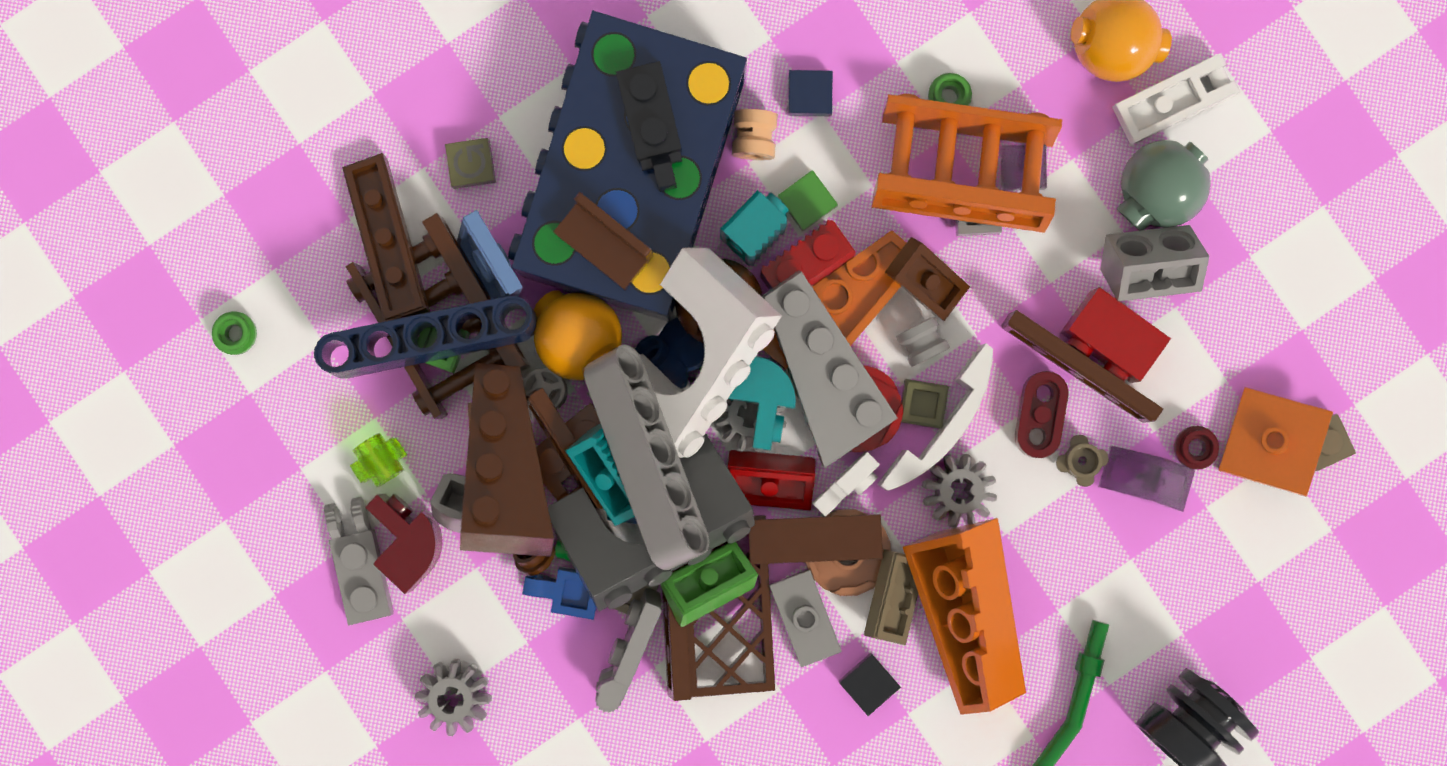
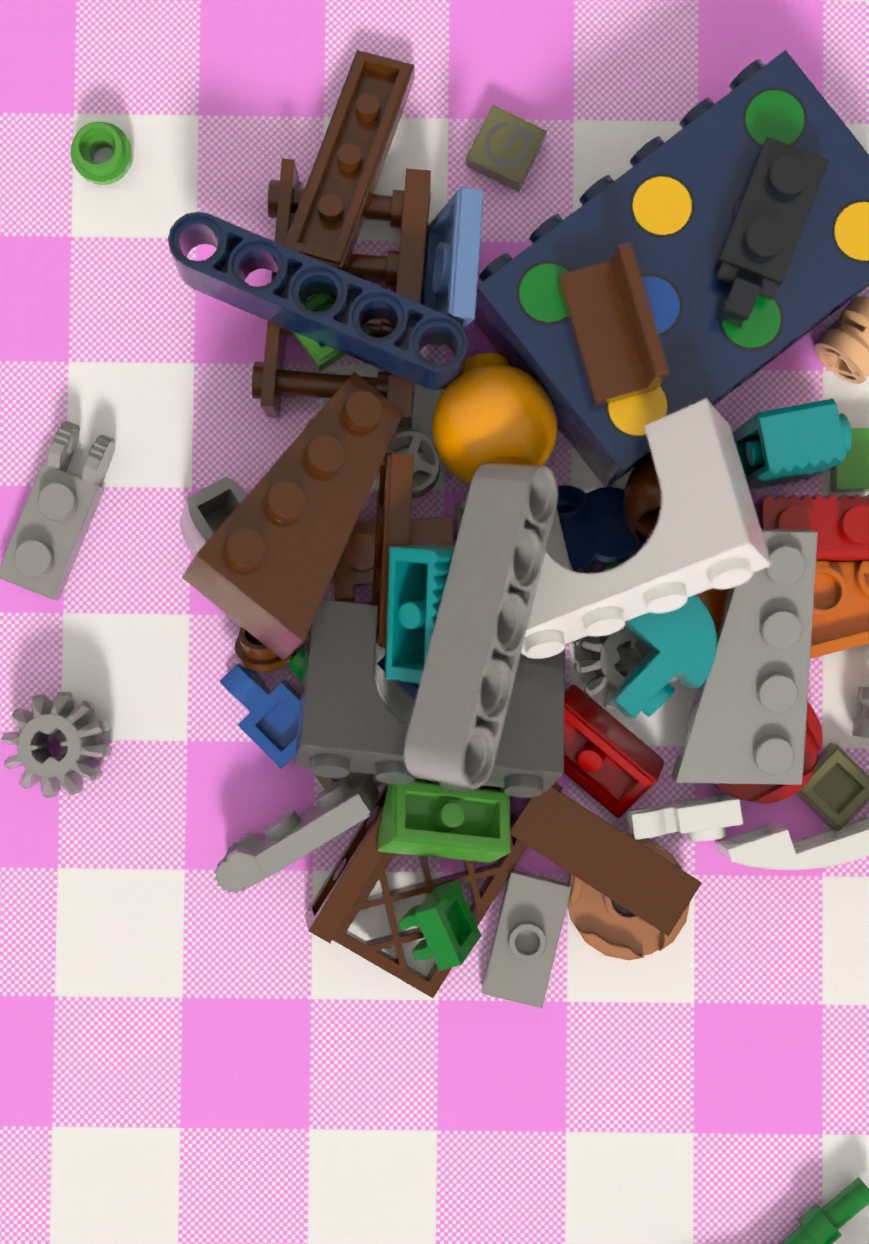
camera: 30 degrees right, 0 degrees up
(378, 460) = (162, 410): clear neon green gear -> none
(416, 545) = (139, 539): dark red brick -> none
(750, 642) = (446, 926): none -> green tile
(869, 684) = (547, 1068): black tile -> none
(892, 600) = (648, 989): dark tan plate -> none
(970, 613) = (729, 1073): orange wedge -> none
(974, 489) = (828, 929): light grey gear -> none

